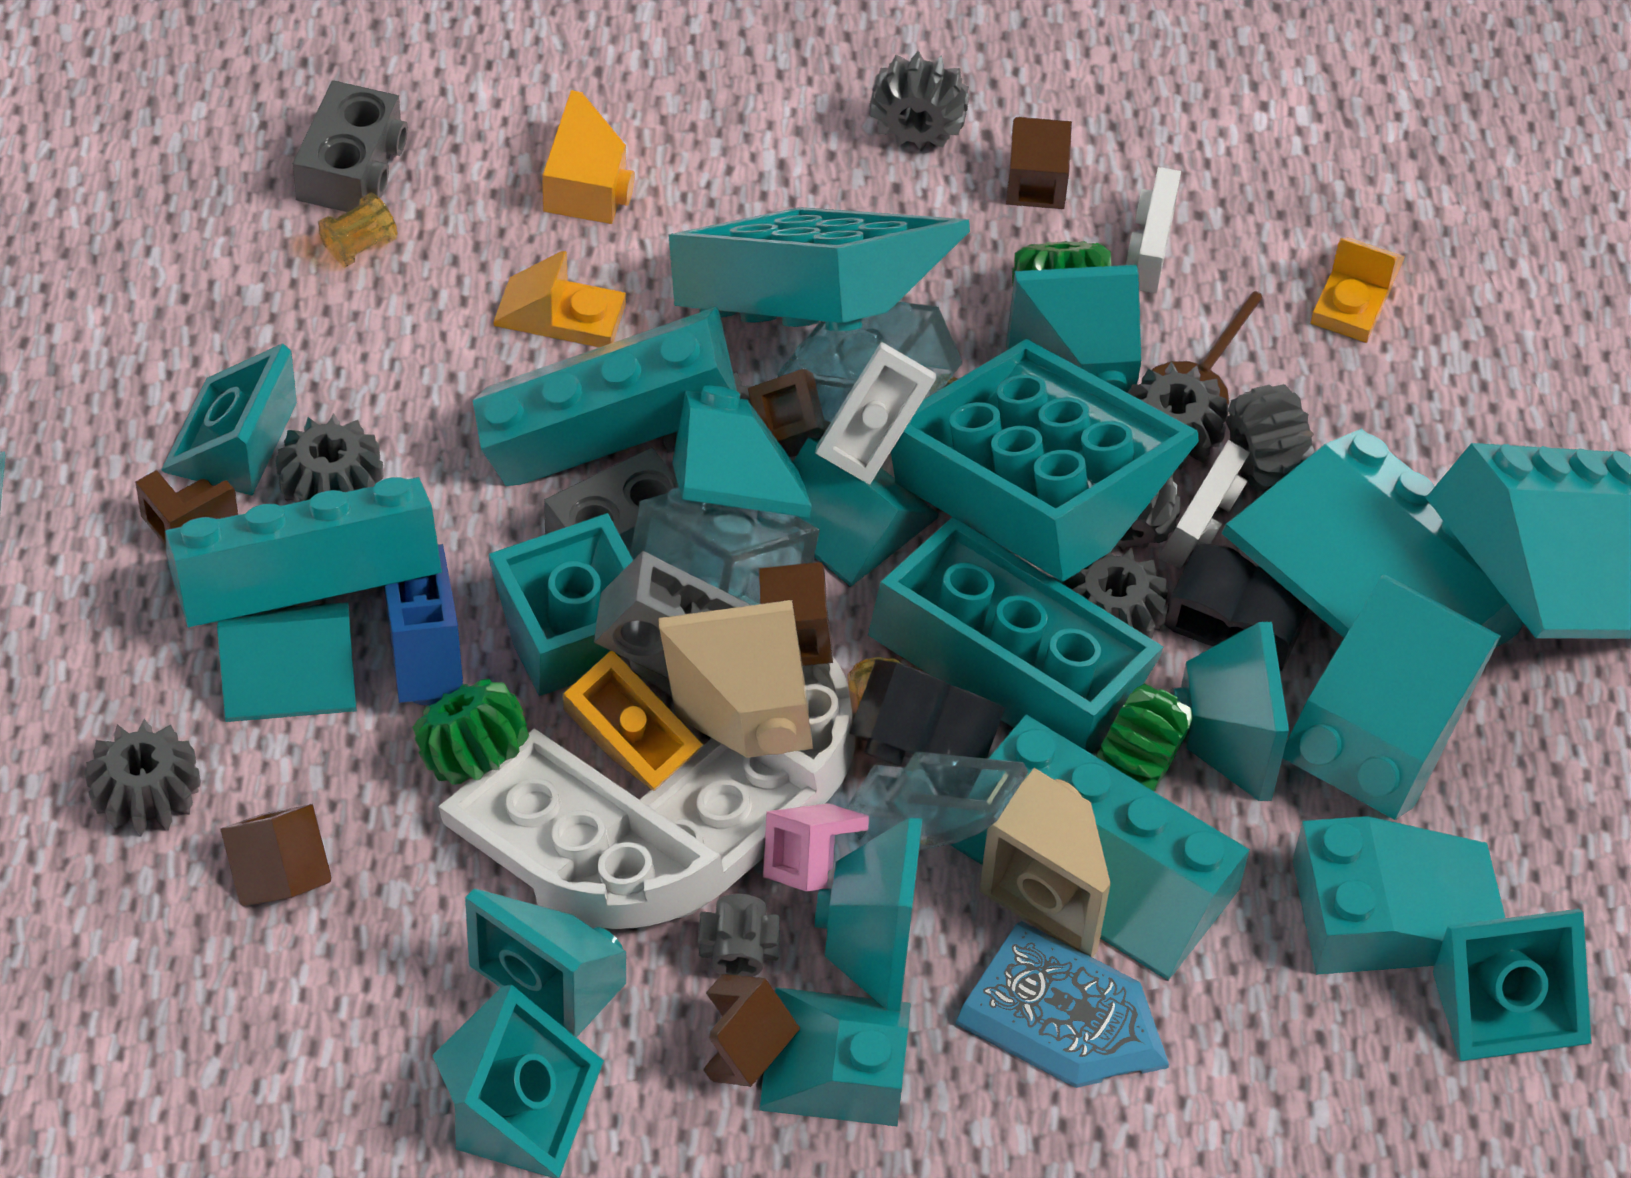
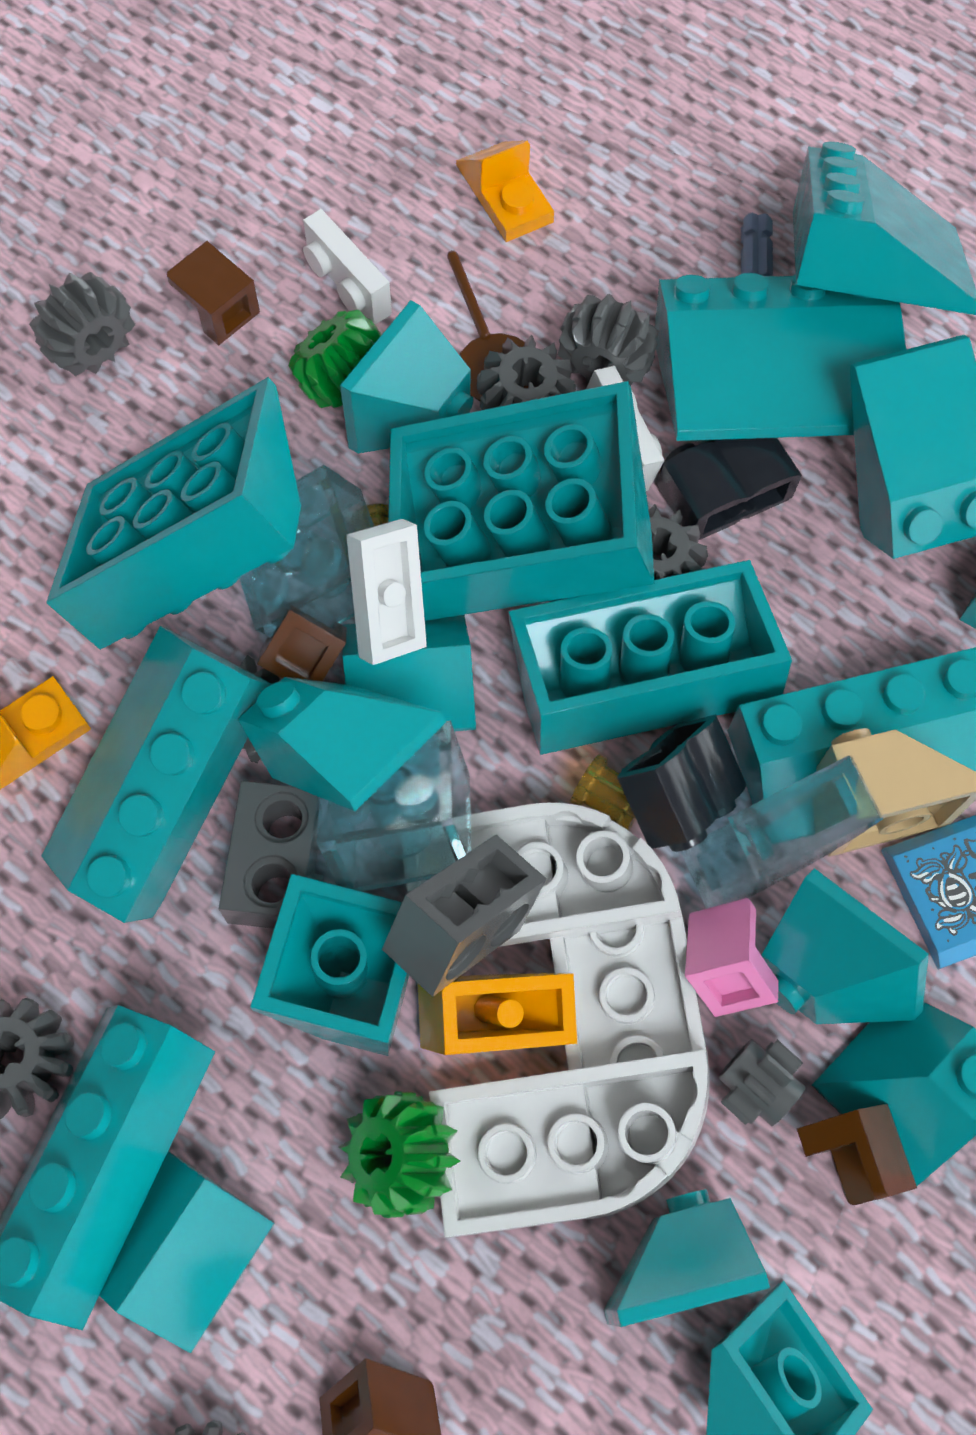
camera: 50 degrees left, 15 degrees up
(424, 637) = (264, 1114): blue slope -> none
(740, 677) = (573, 902): tan slope -> none
(807, 589) = (517, 803): reddish brown panel -> none
(1146, 735) = (818, 637): green gear -> none
(1238, 709) = (840, 551): teal slope -> none

